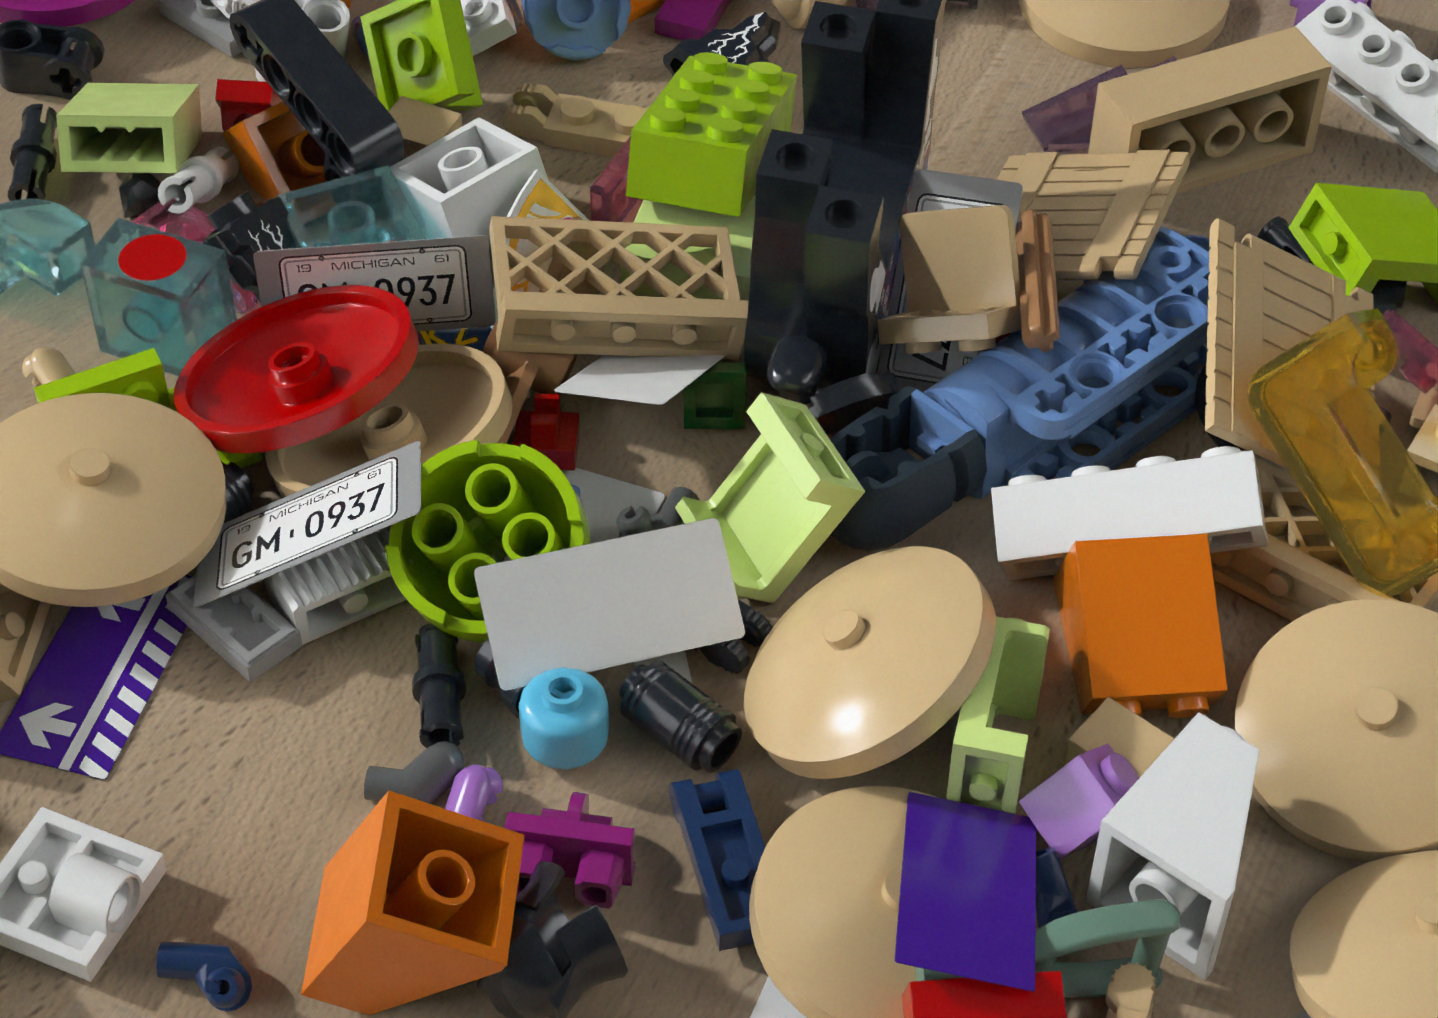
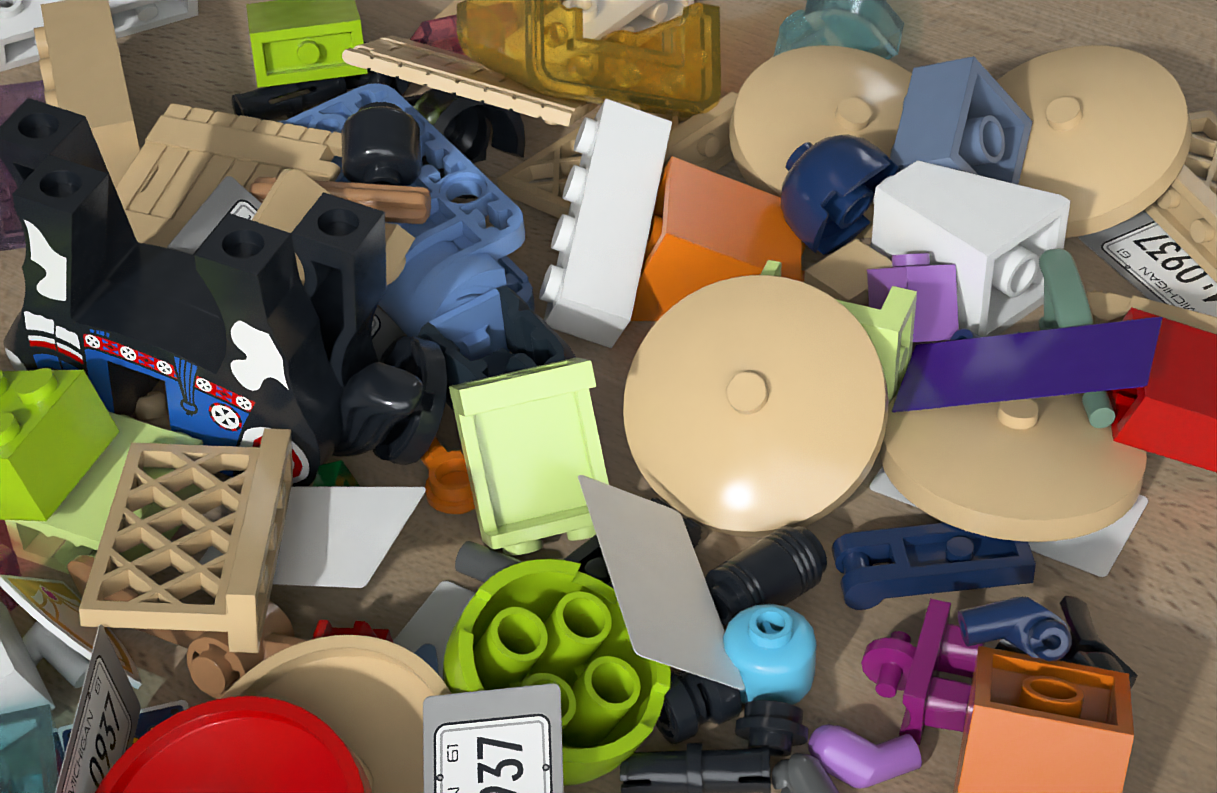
camera: 80 degrees left, 5 degrees down
(489, 733) = (772, 725): none -> black plate
(547, 855) = (1019, 623): none -> dark blue arm
(1105, 288) = (381, 146): none -> black head
(1226, 683) = (832, 189): none -> dark blue cylinder
(1345, 813) = (961, 122): none -> sand blue brick

